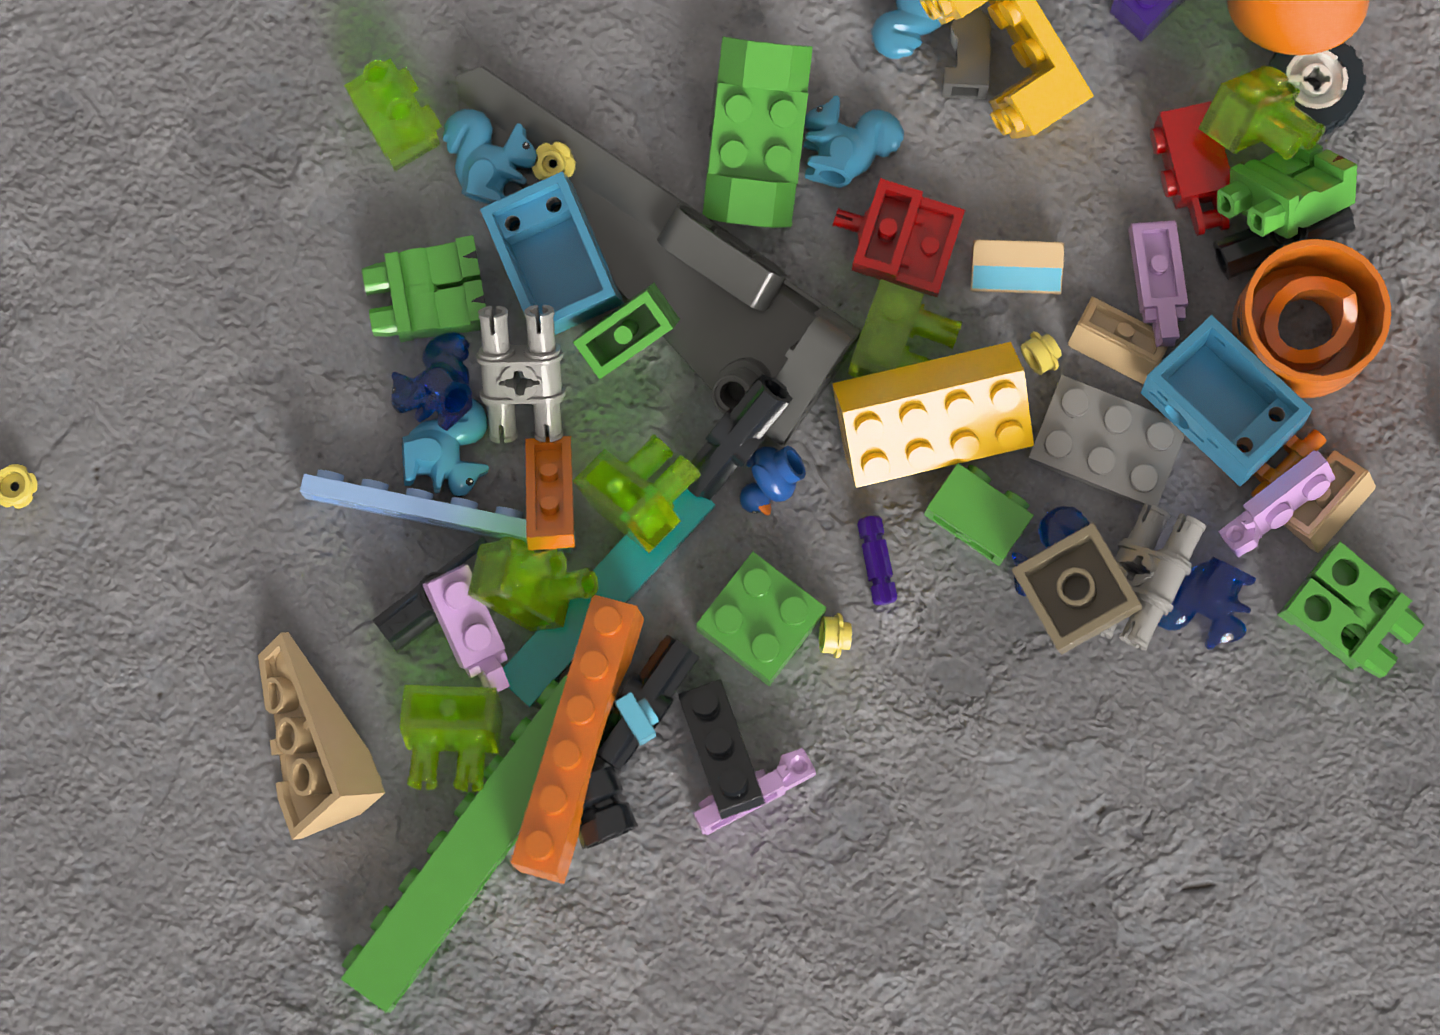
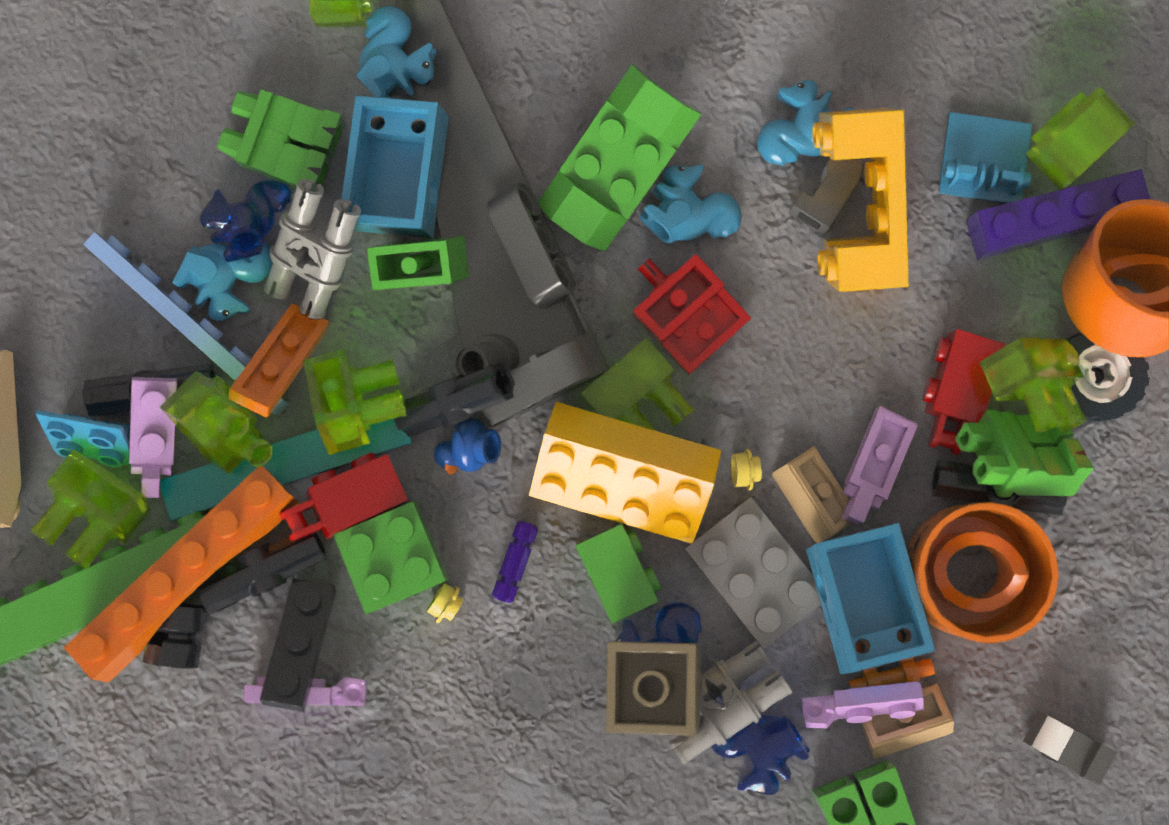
camera: 30 degrees right, 5 degrees up
(415, 663) = (89, 437): none -> dark azure hinge
(558, 152) = (451, 87): light yellow plate -> none
(638, 717) = (240, 585): medium azure plate -> none
(688, 586) = (347, 497): none -> red brick
(1017, 266) = (767, 388): slope -> none

